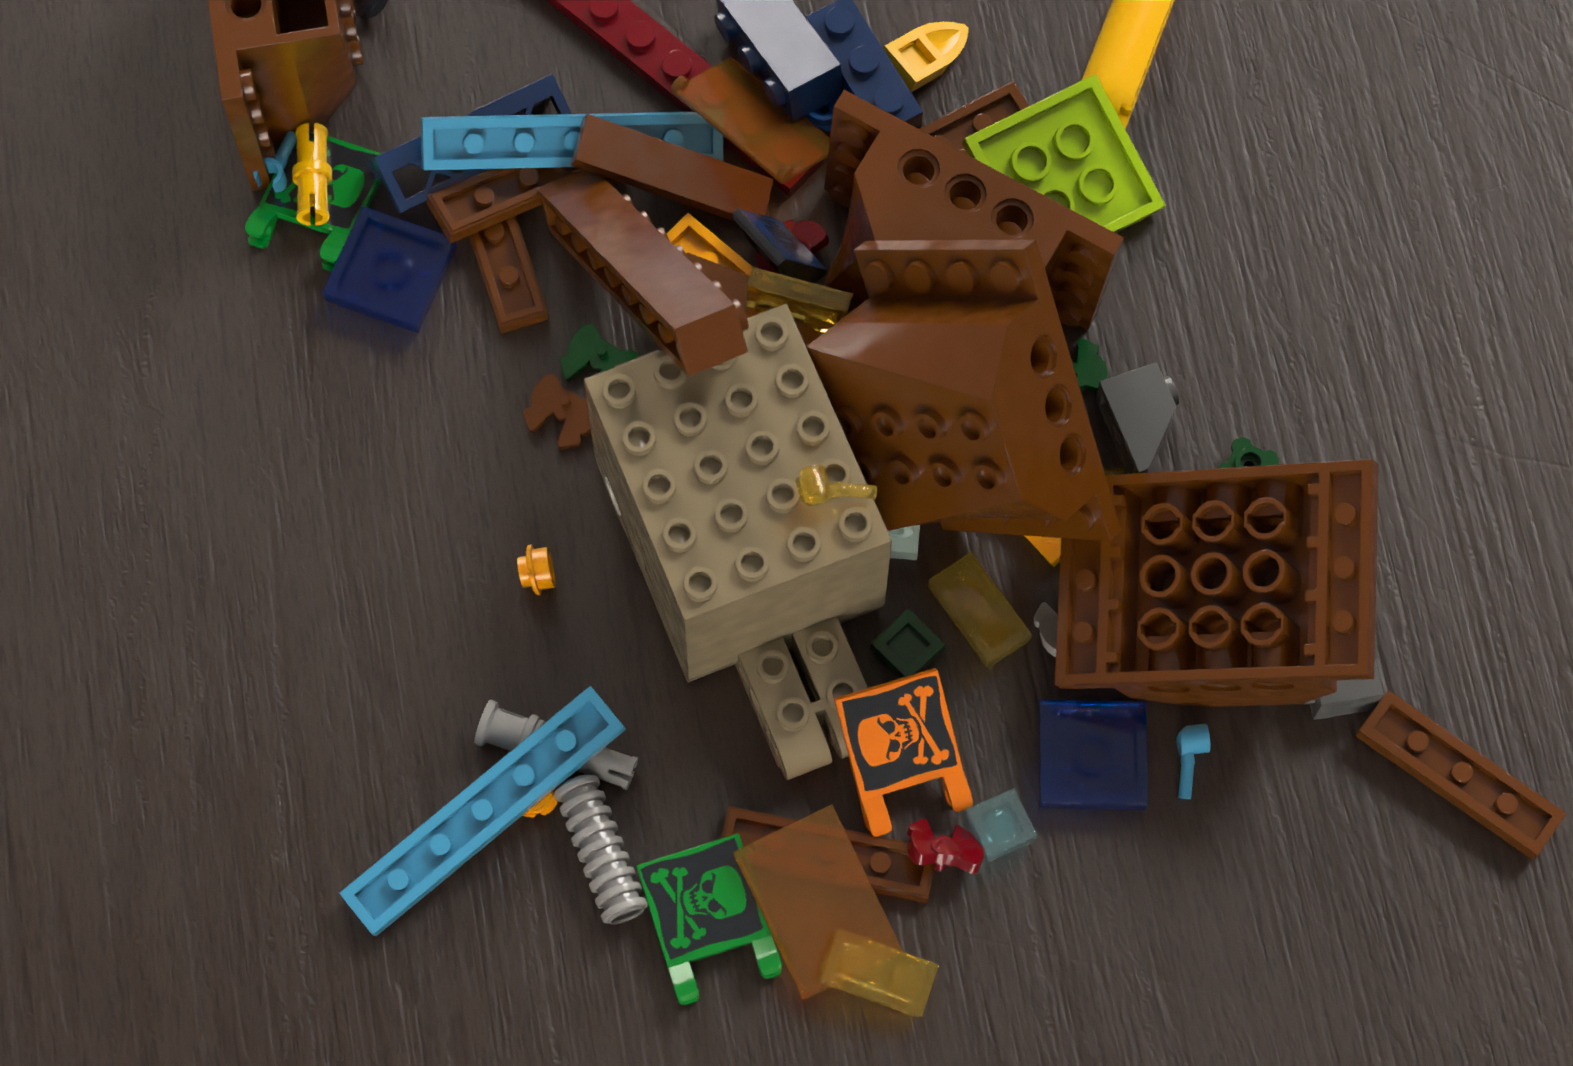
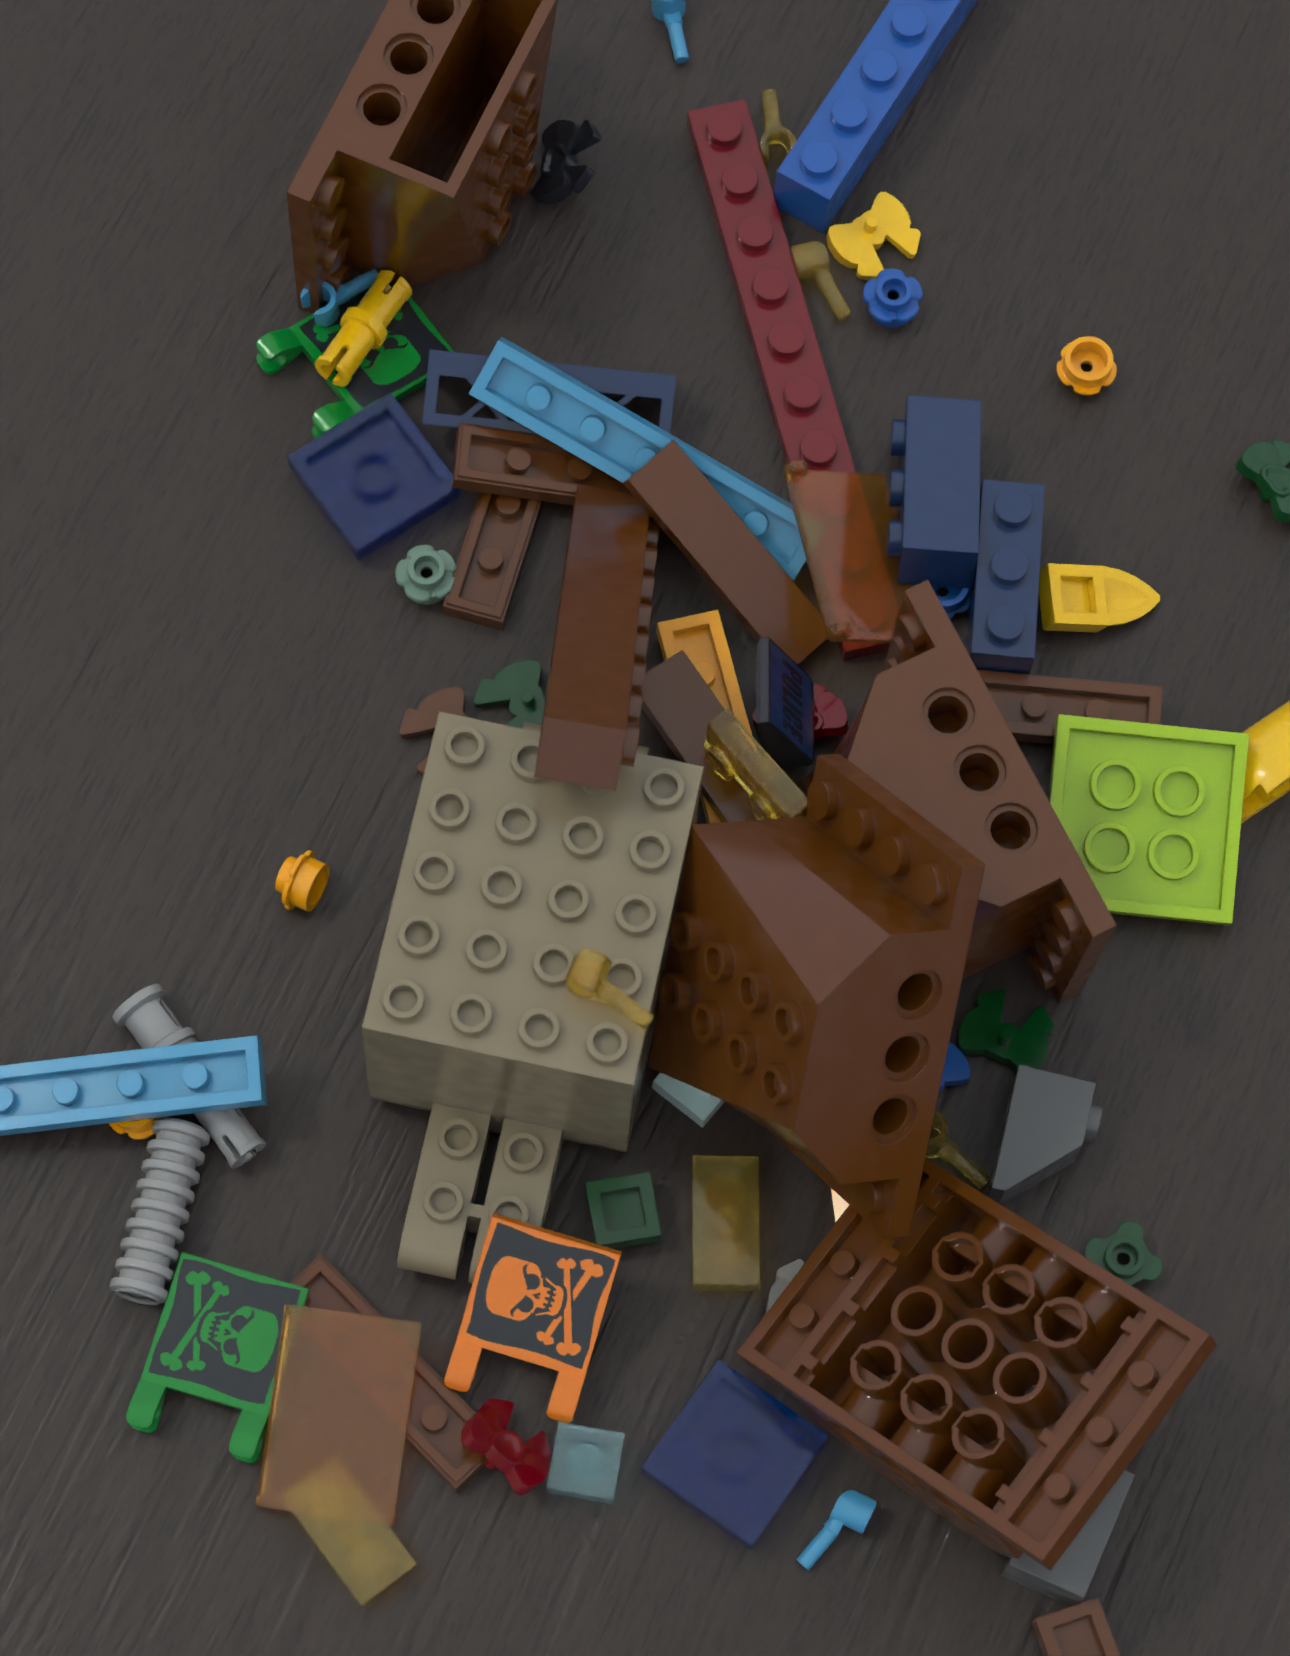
camera: 30 degrees right, 0 degrees up
(475, 325) = (421, 589): none -> sand green plate

